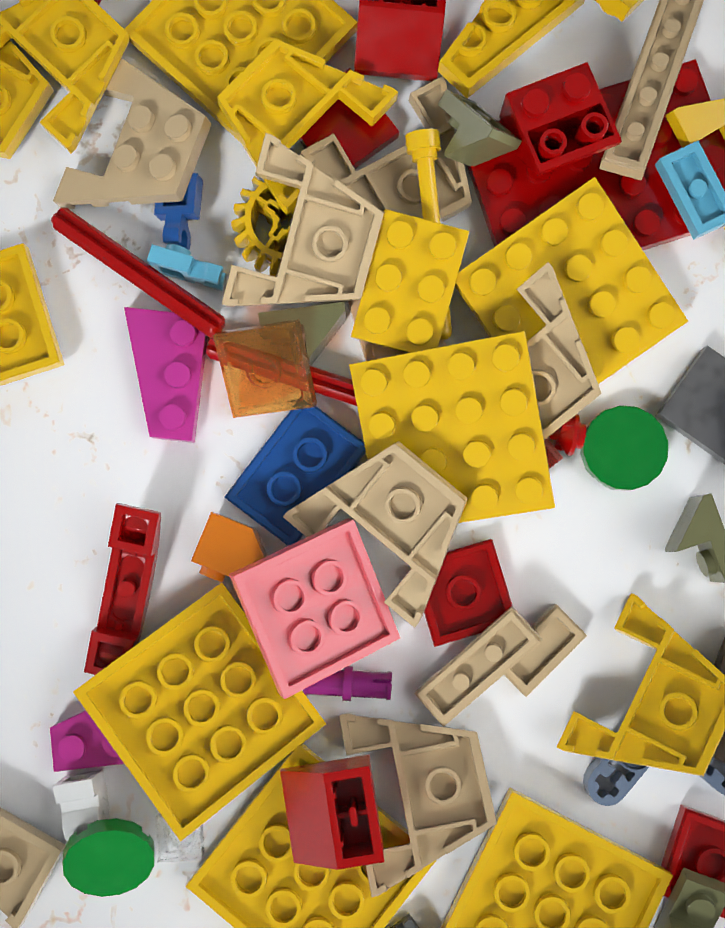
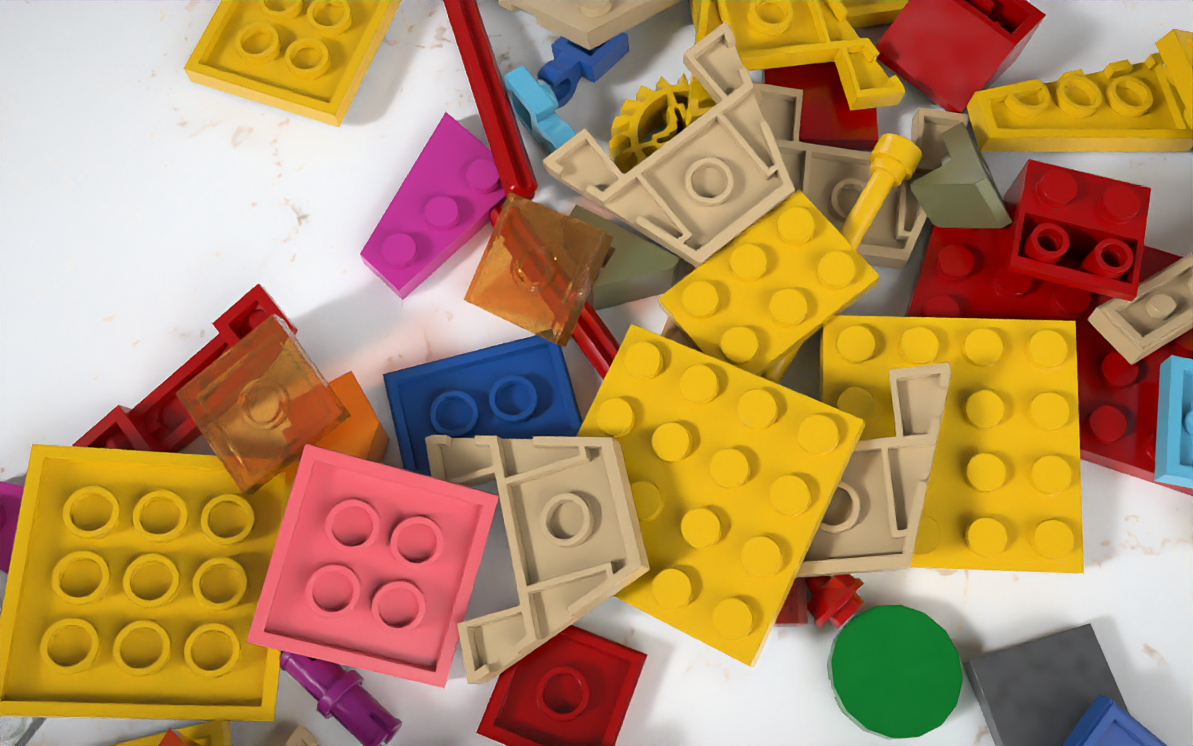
camera: 35 degrees right, 15 degrees down
(180, 569) = (262, 404): none -> clear orange tile

